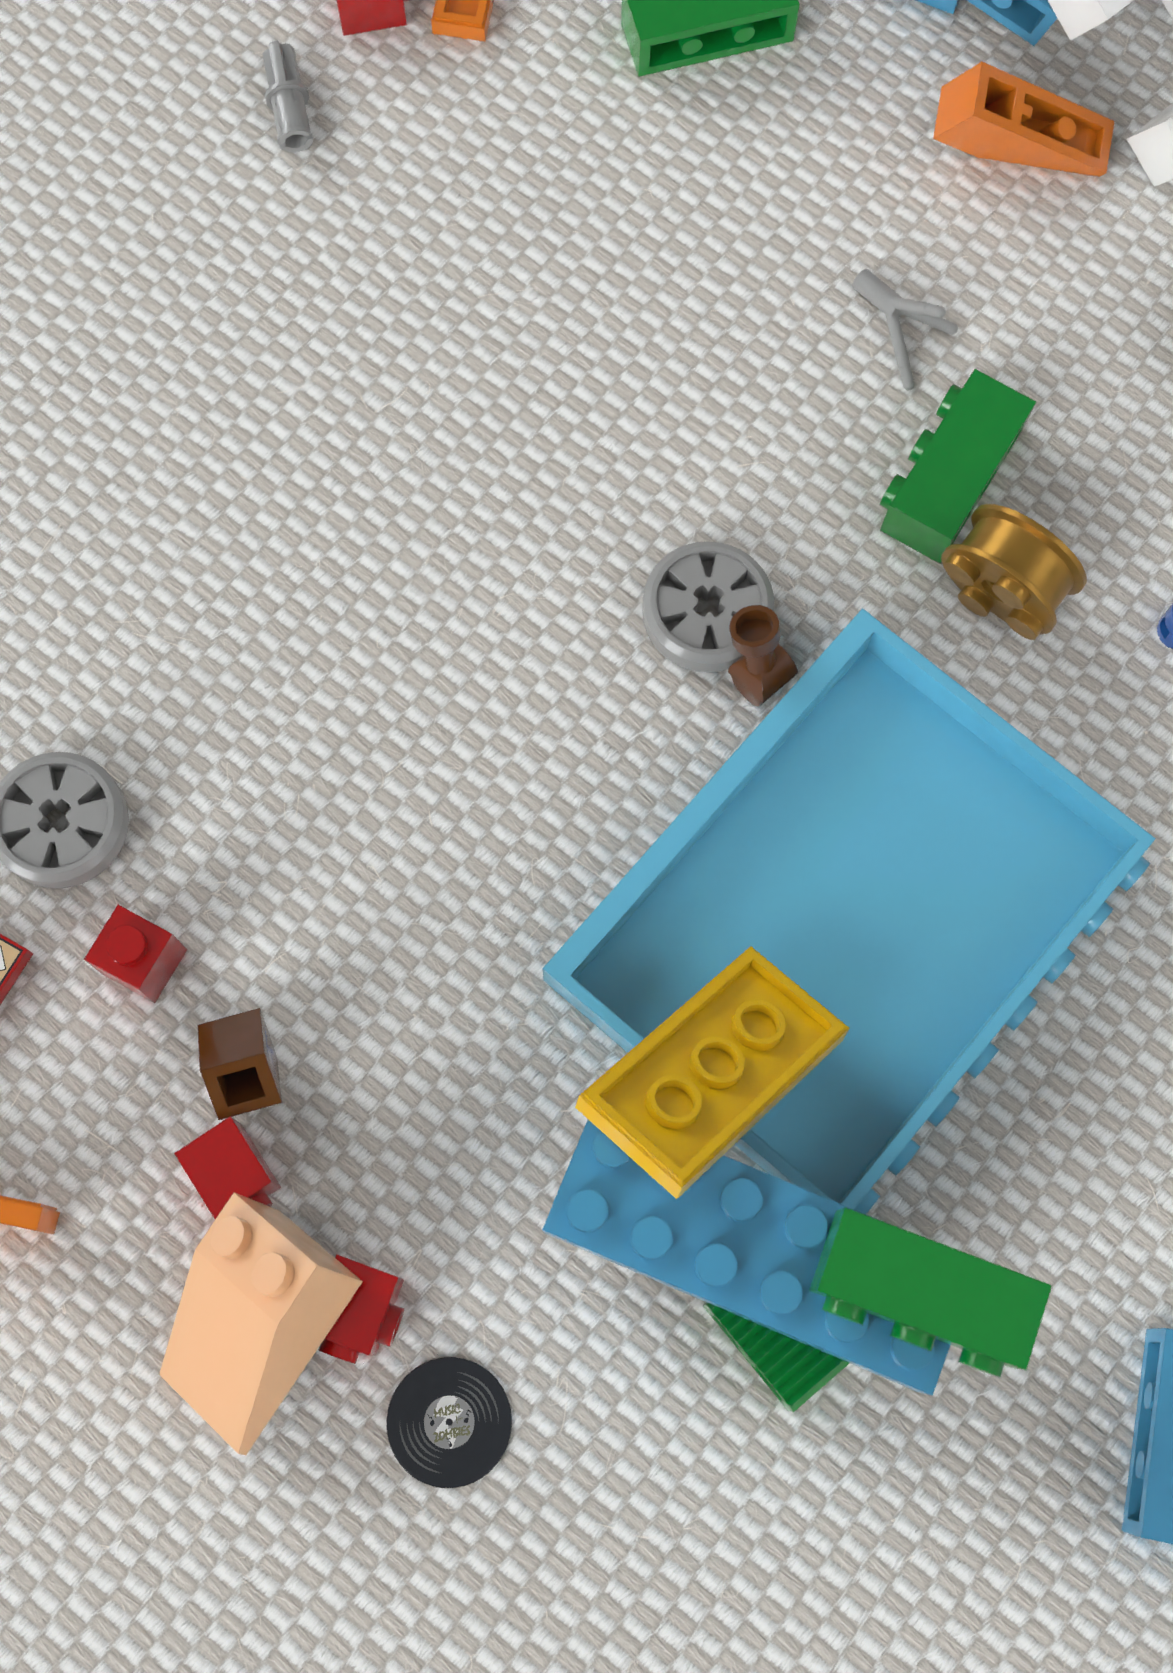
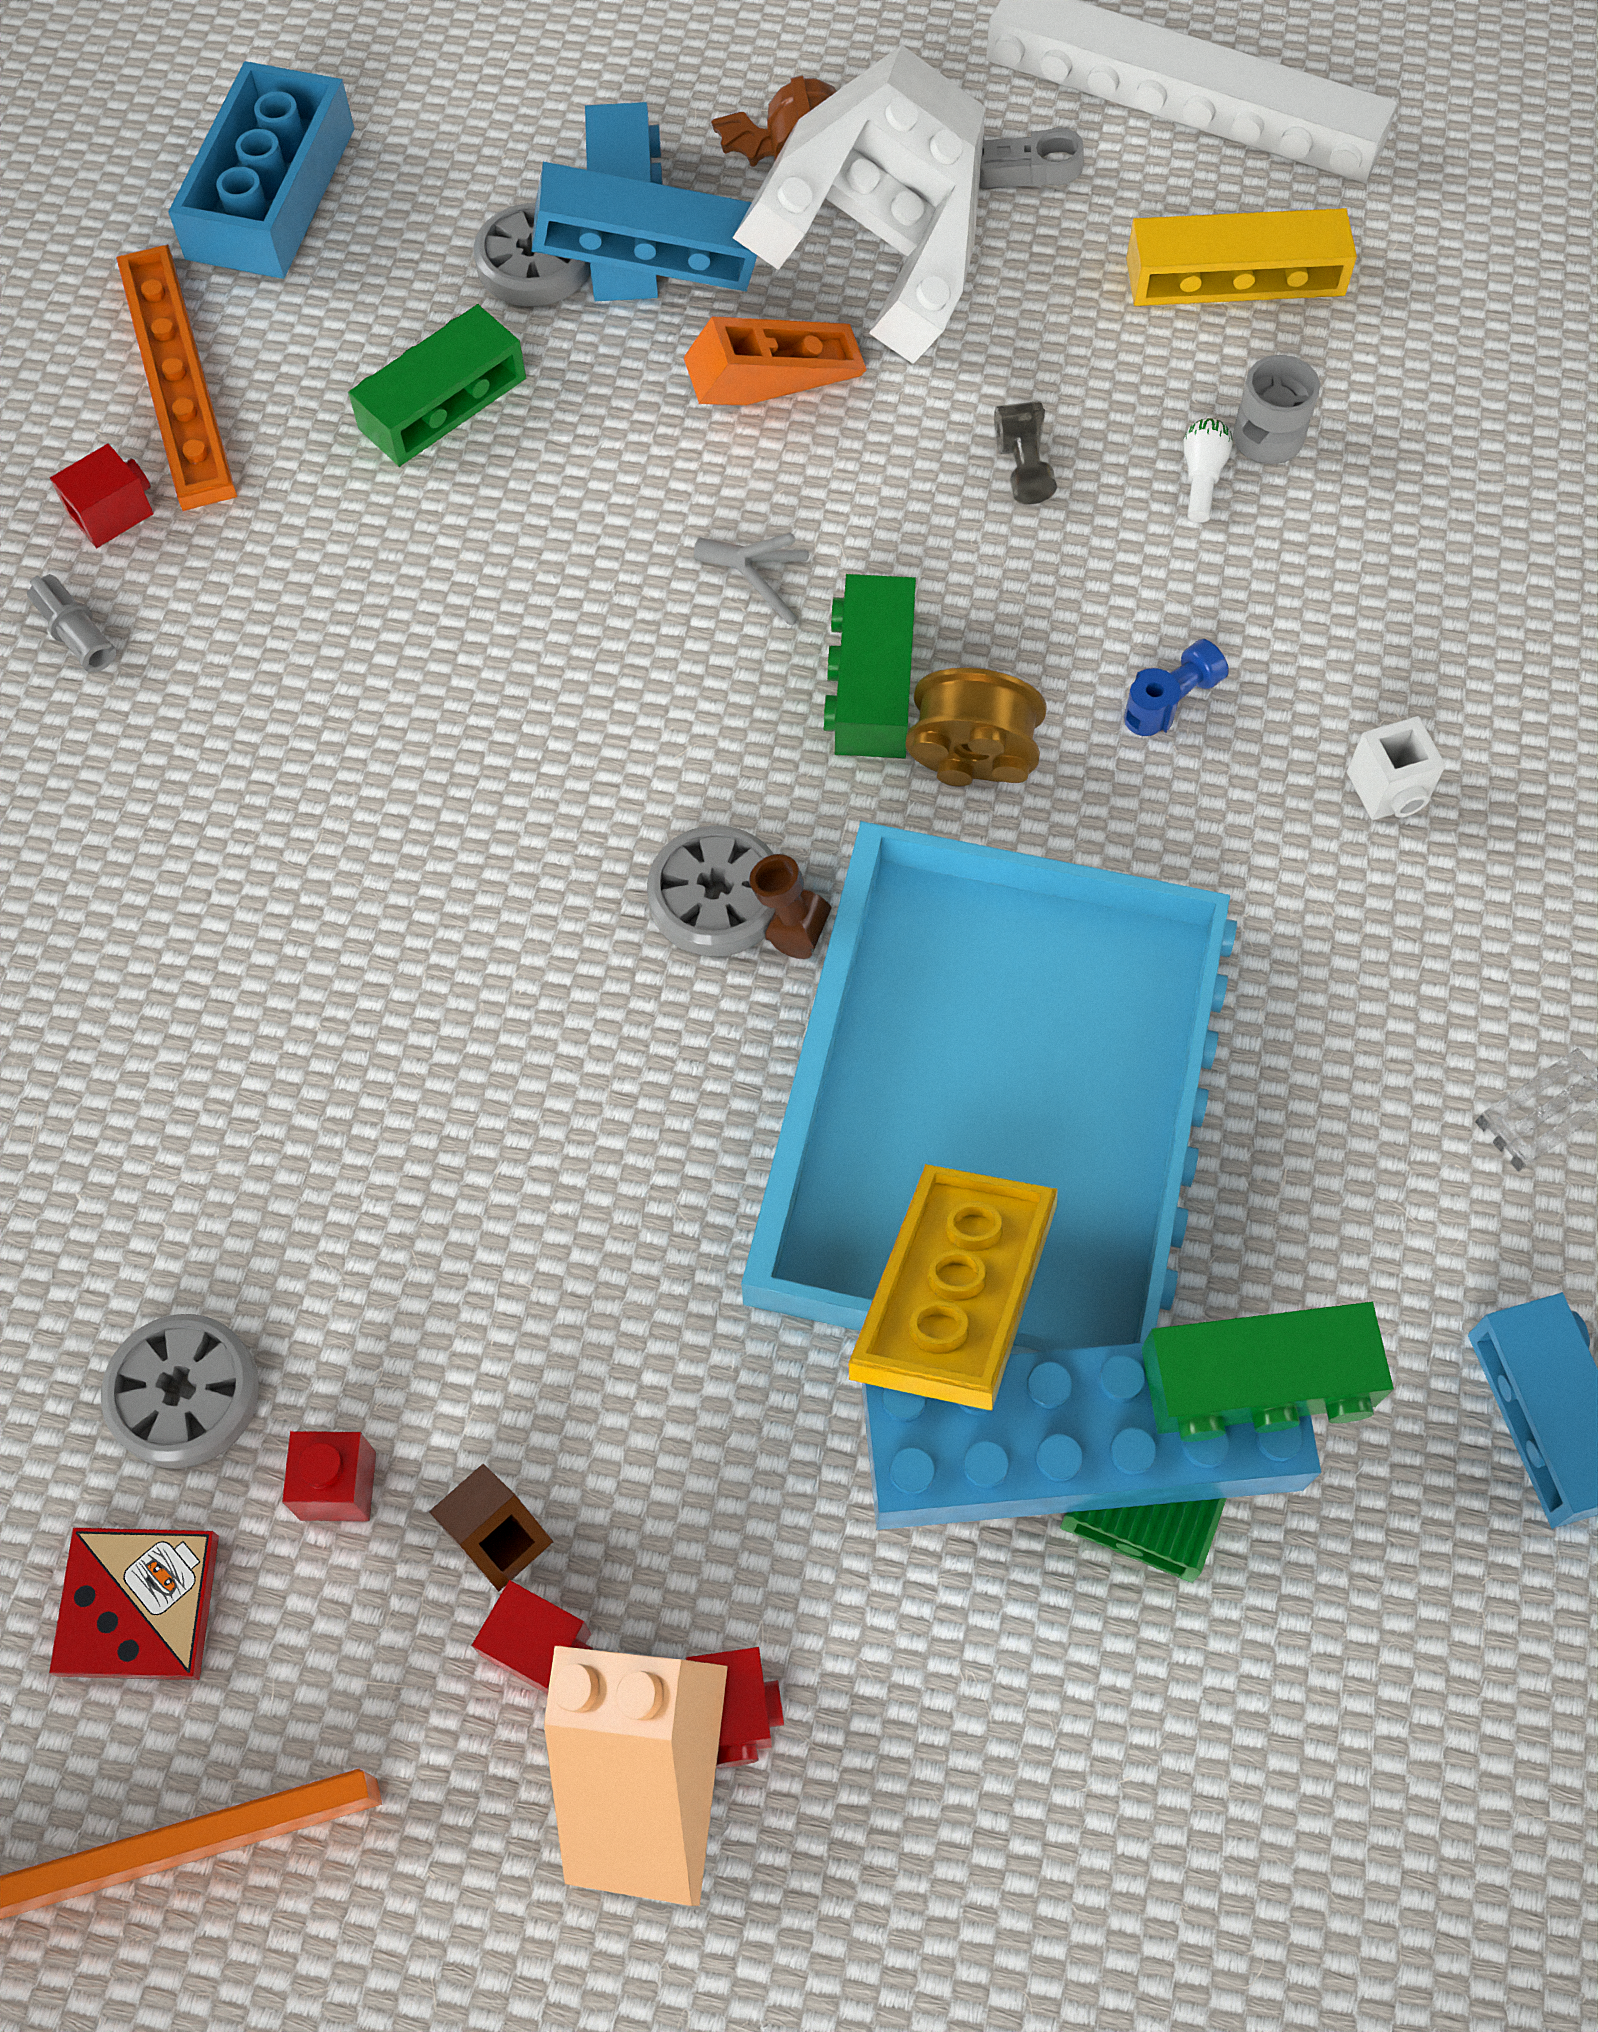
camera: 25 degrees left, 10 degrees down
(449, 1422) = (878, 1773): black sticker -> none

